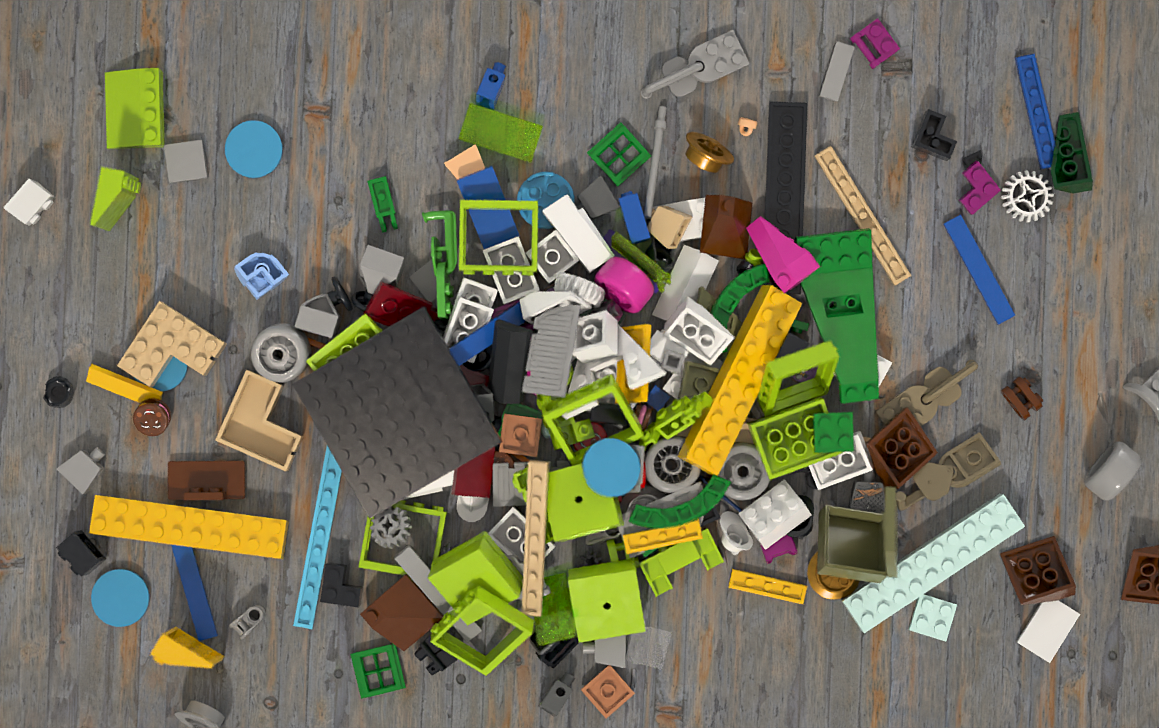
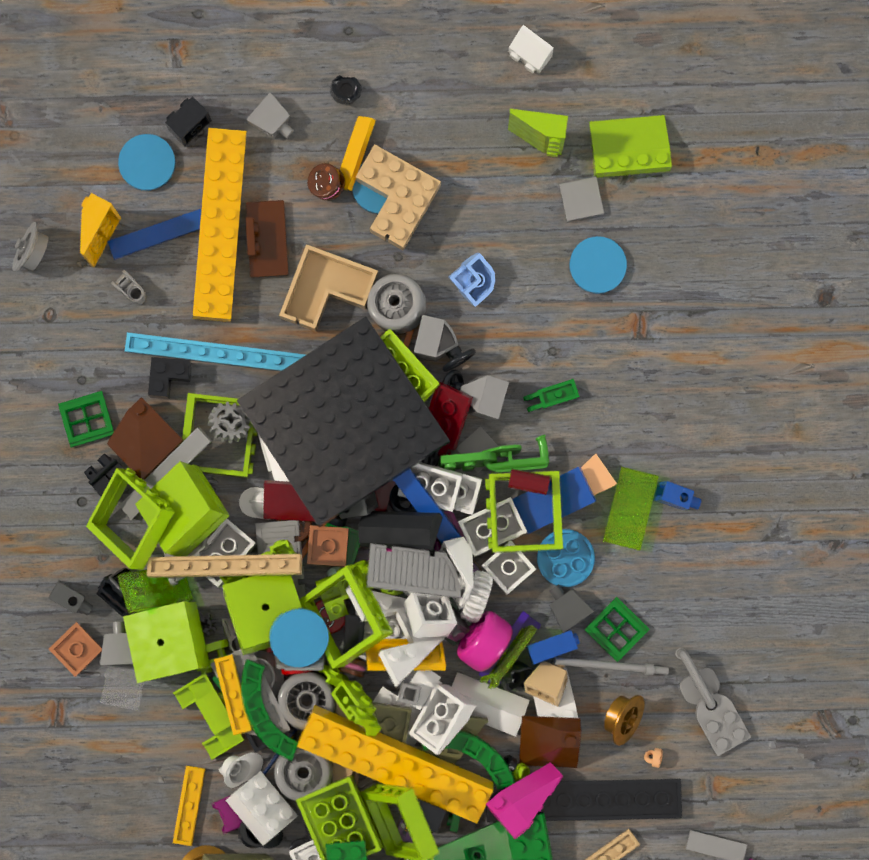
camera: 90 degrees right, 5 degrees down
(469, 230) = (529, 481): none -> dark red brick
(578, 233) = (534, 592): white slope -> none
(657, 398) = (373, 682): blue plate -> none

